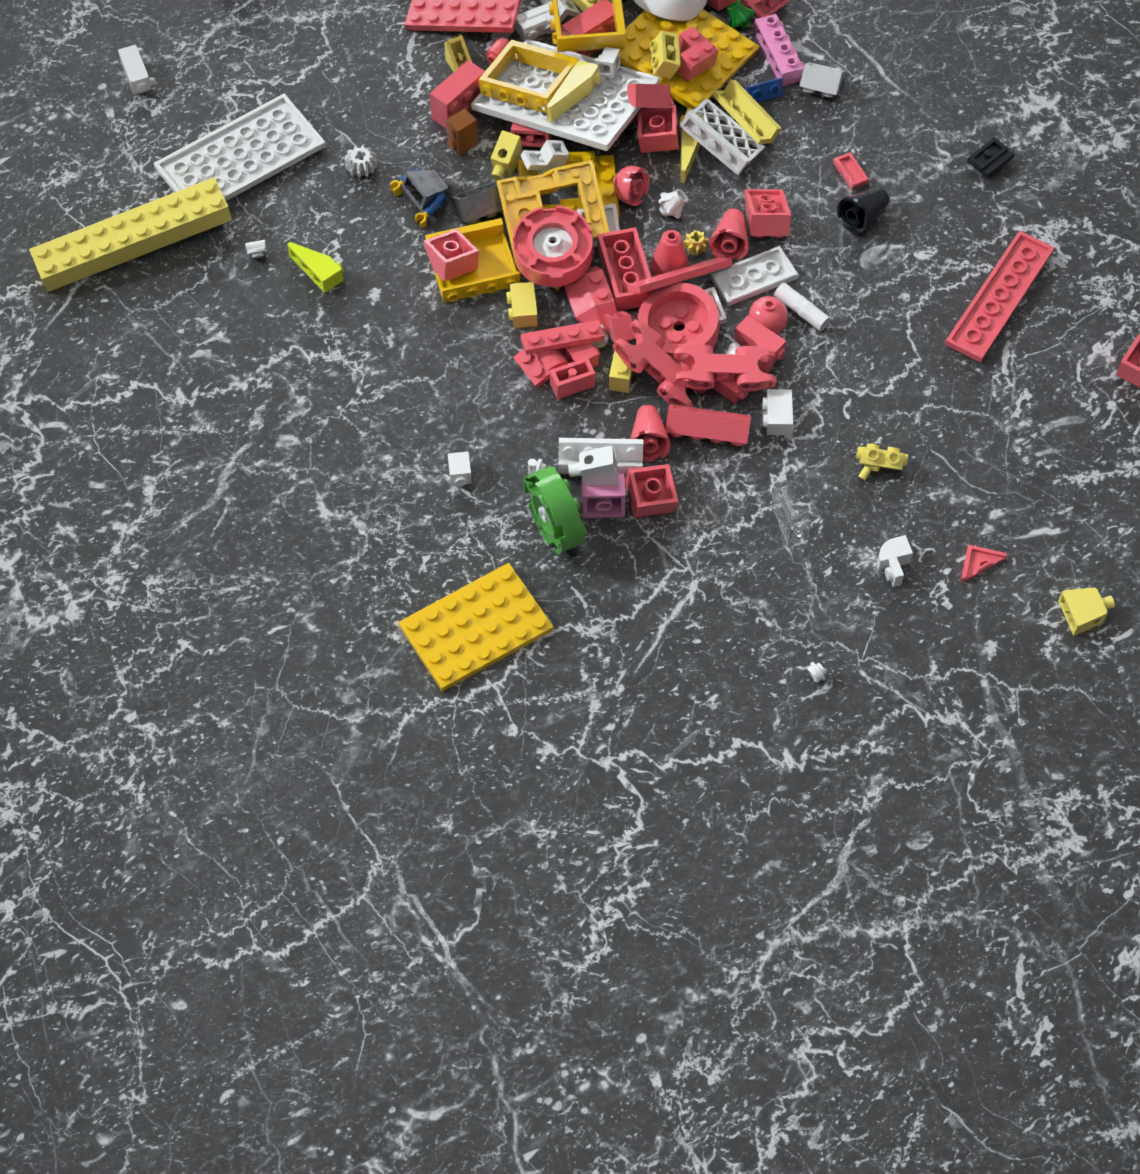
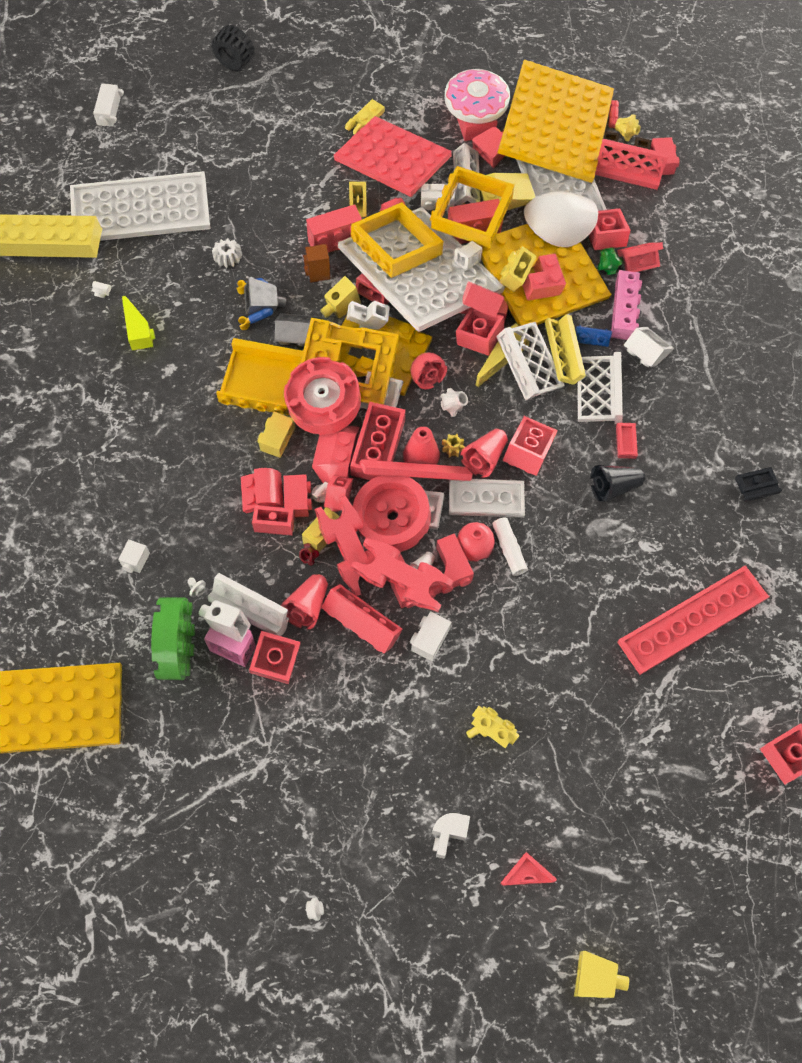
camera: 25 degrees right, 5 degrees up
(451, 254) = (242, 364): coral slope -> none
(562, 337) = (284, 480): coral plate -> none
(575, 87) = (425, 265): light yellow slope -> none
(617, 398) = (304, 554): none -> dark red plate
(794, 529) = (376, 761): clear panel -> none
(815, 129) = (616, 389): none -> white fence

